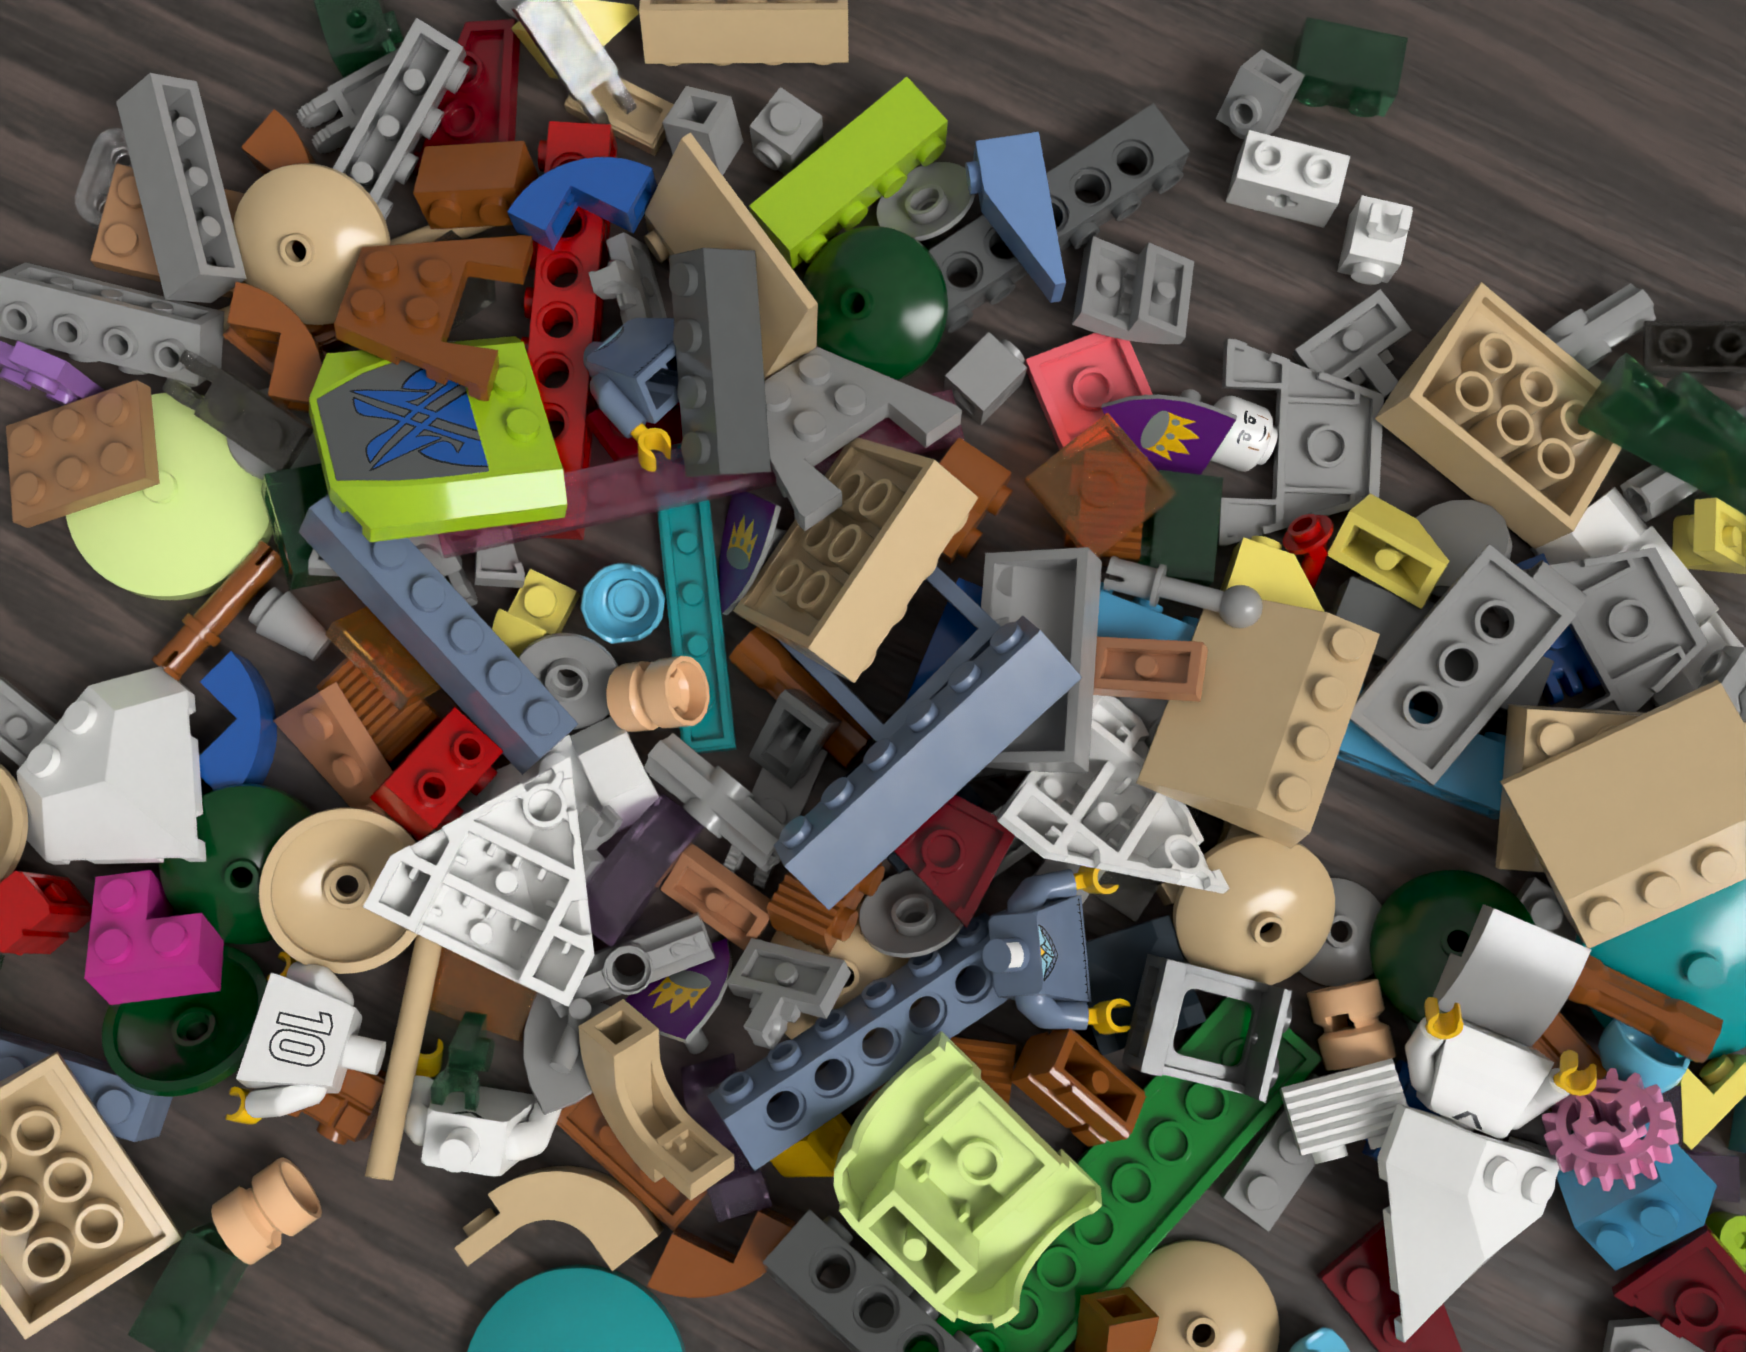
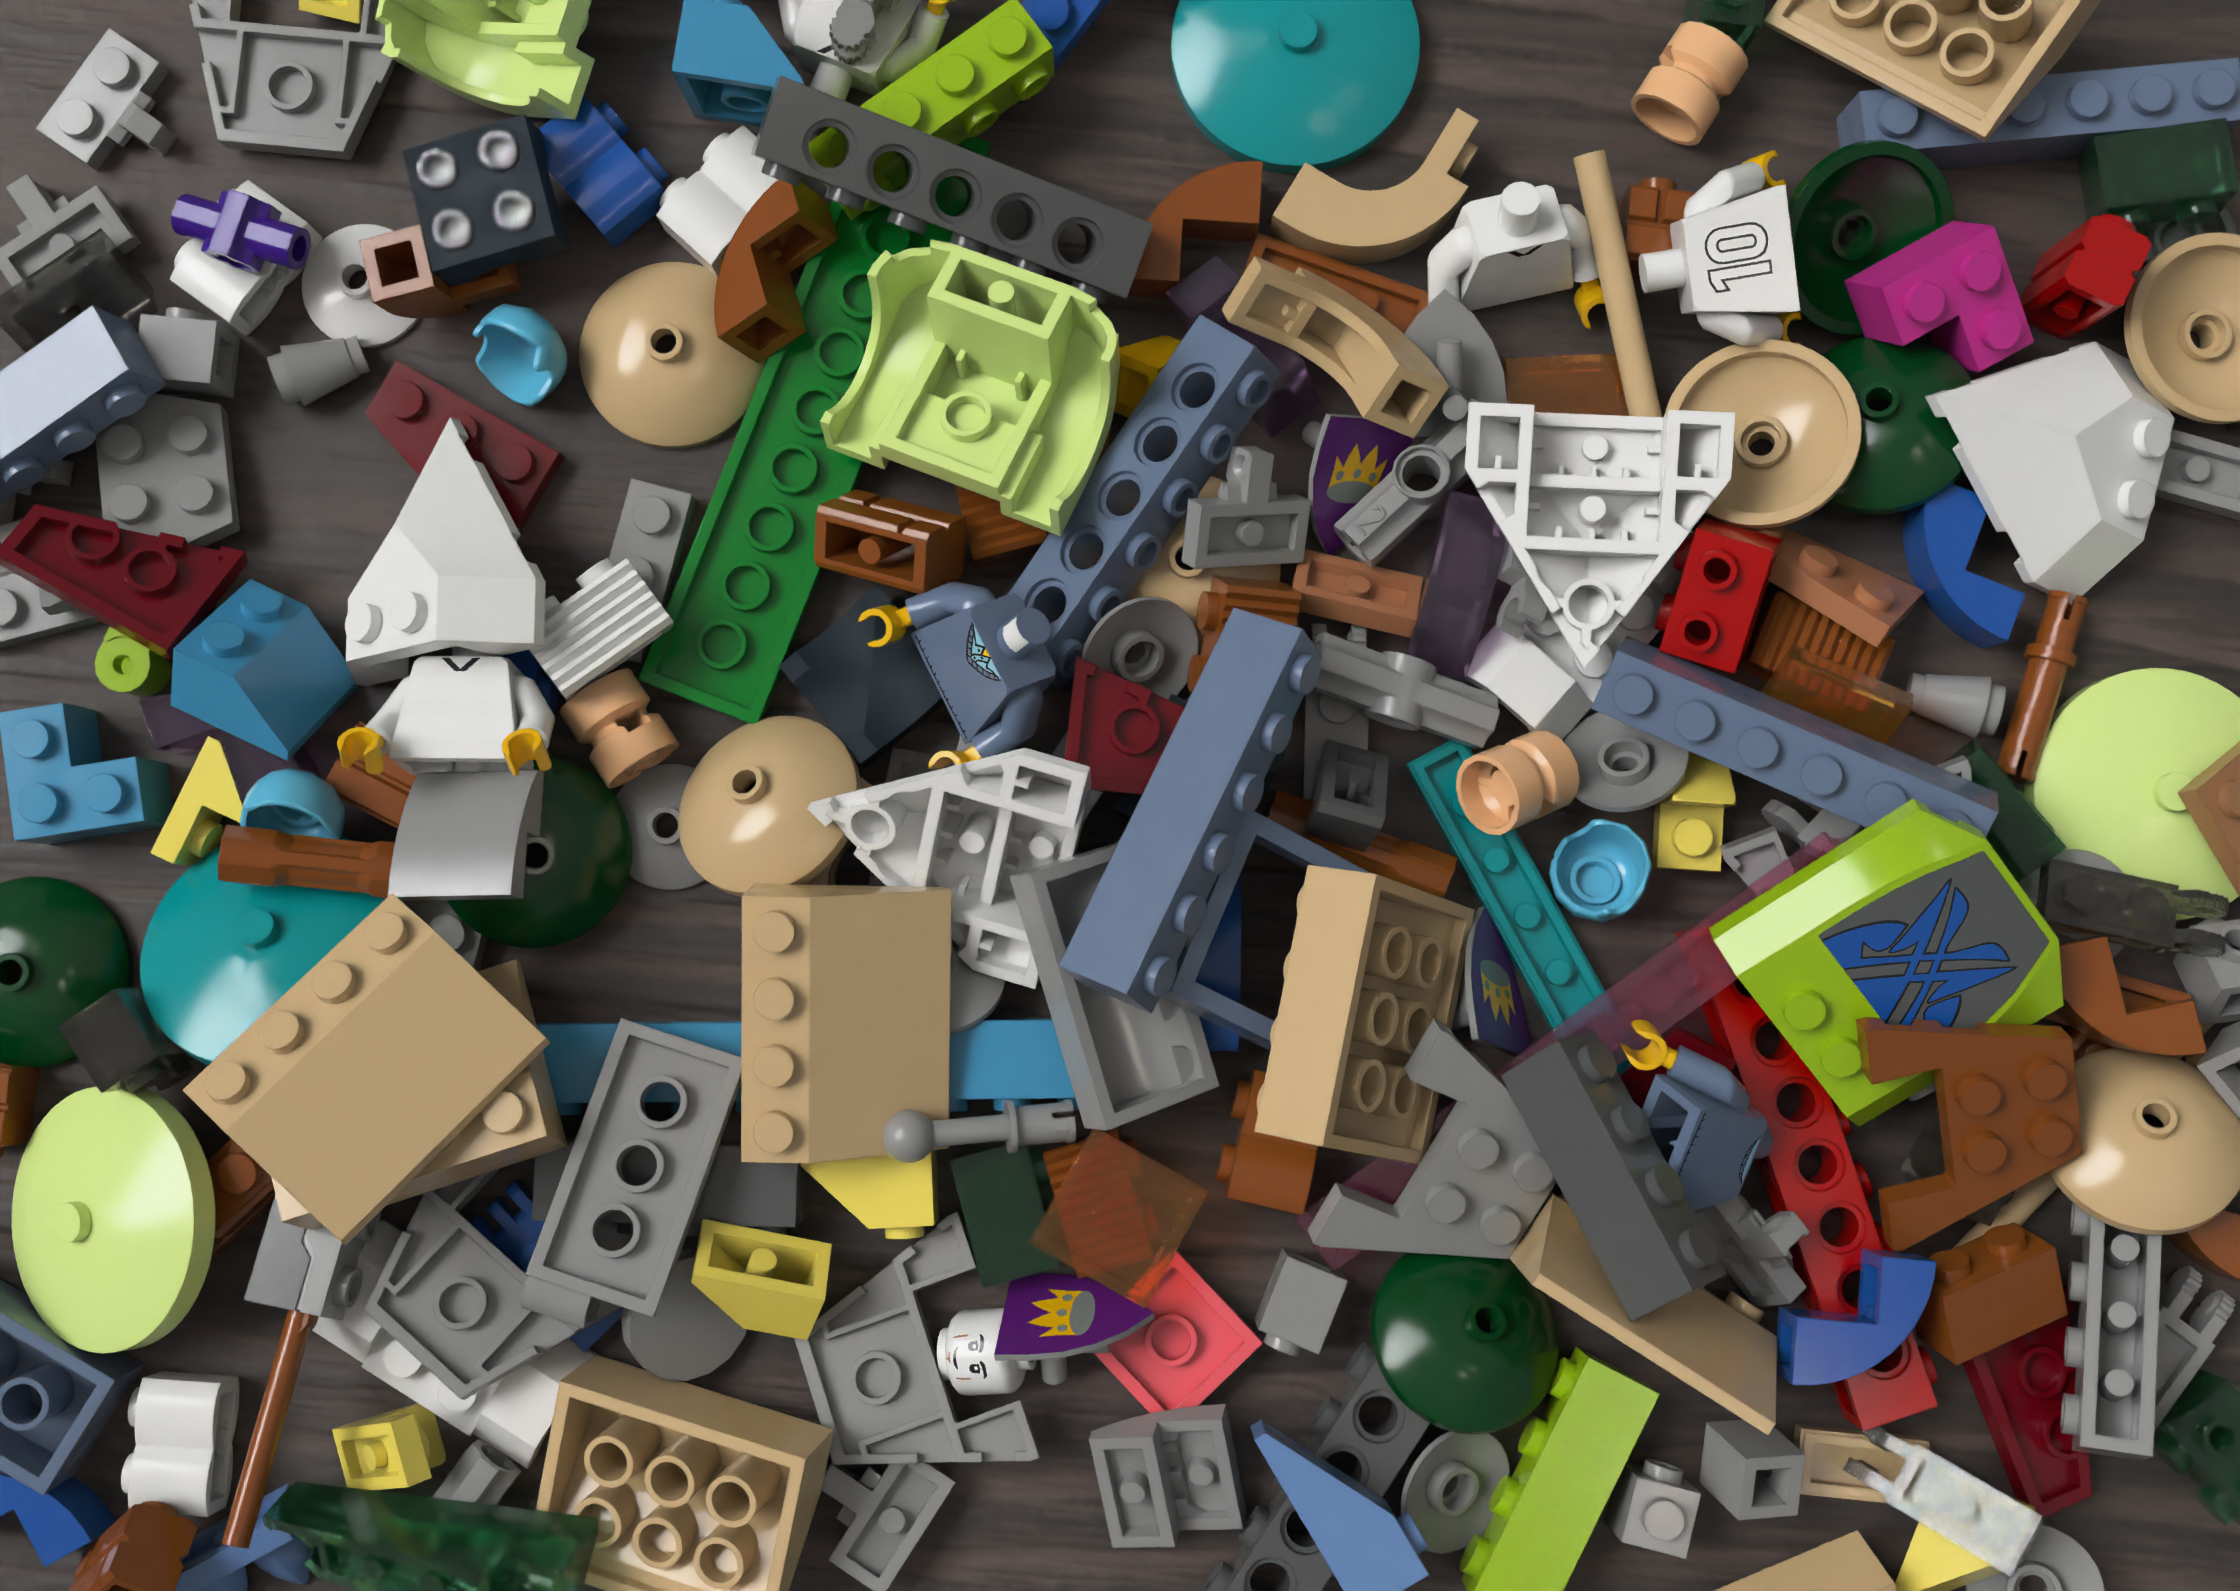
camera: 155 degrees right, 5 degrees up
(468, 1056) = (1552, 318): clear green plate -> none
(1150, 668) = (984, 1022): nougat plate -> none
(1157, 1014) = (834, 648): window -> none
(1309, 537) = (858, 1257): red plate -> none
(1610, 1130) = (308, 682): bright pink gear -> none

